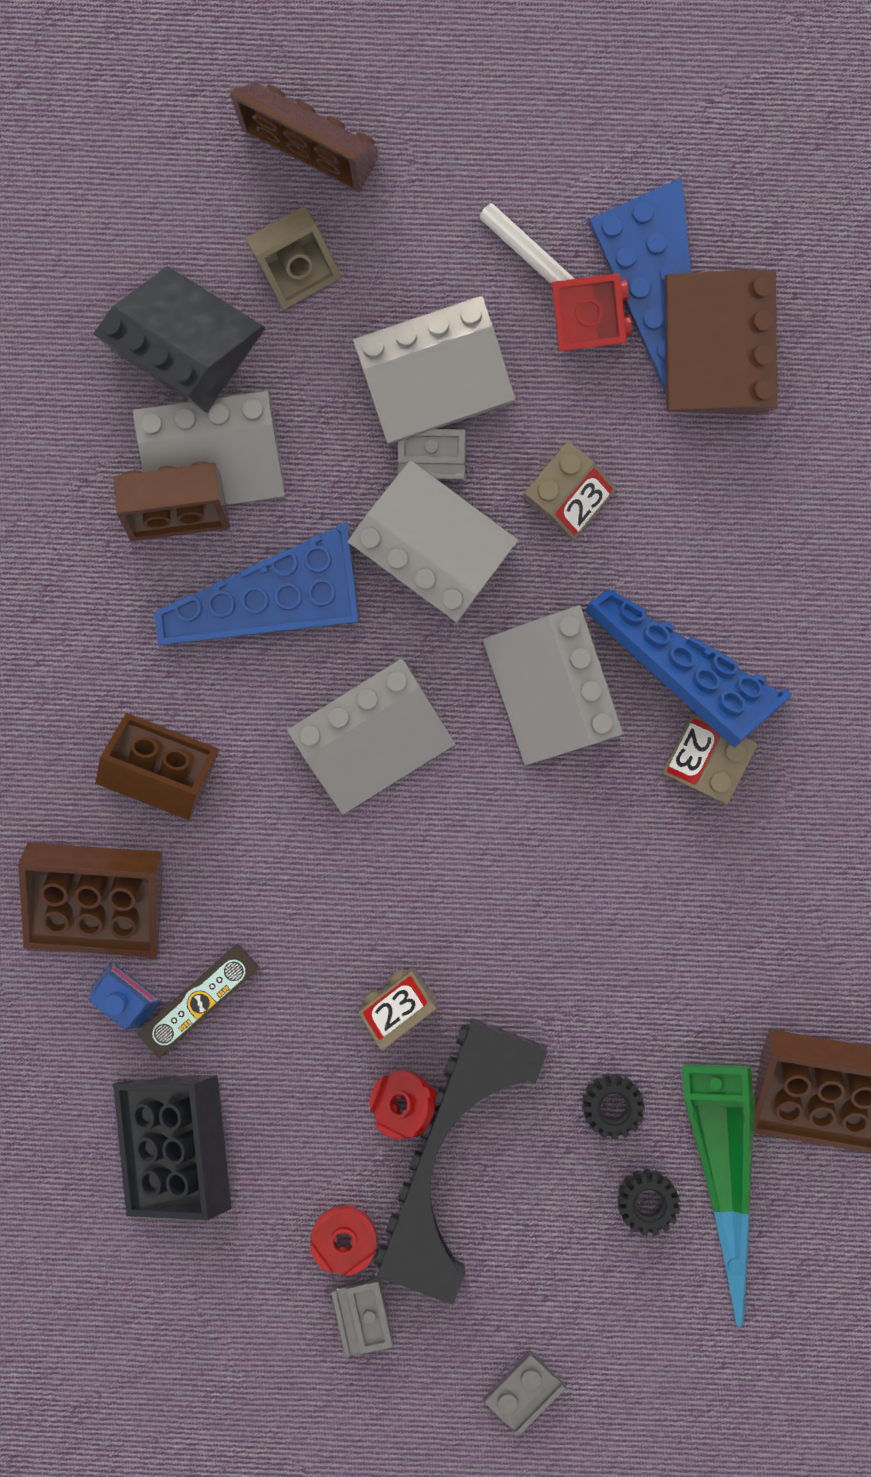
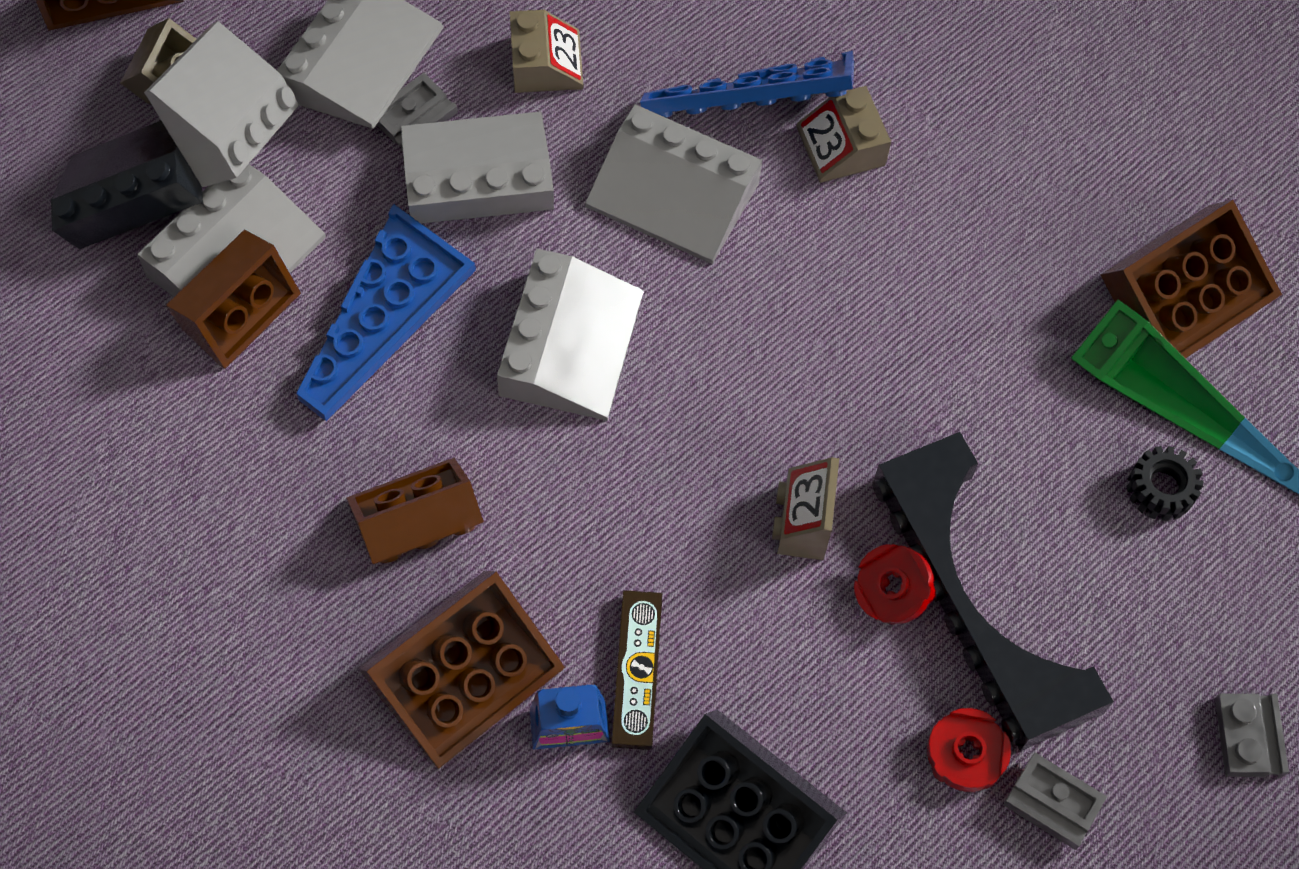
camera: 50 degrees left, 25 degrees down
(281, 346) = (221, 104): none -> light grey slope
(613, 1126) = (1064, 419): black tyre -> none

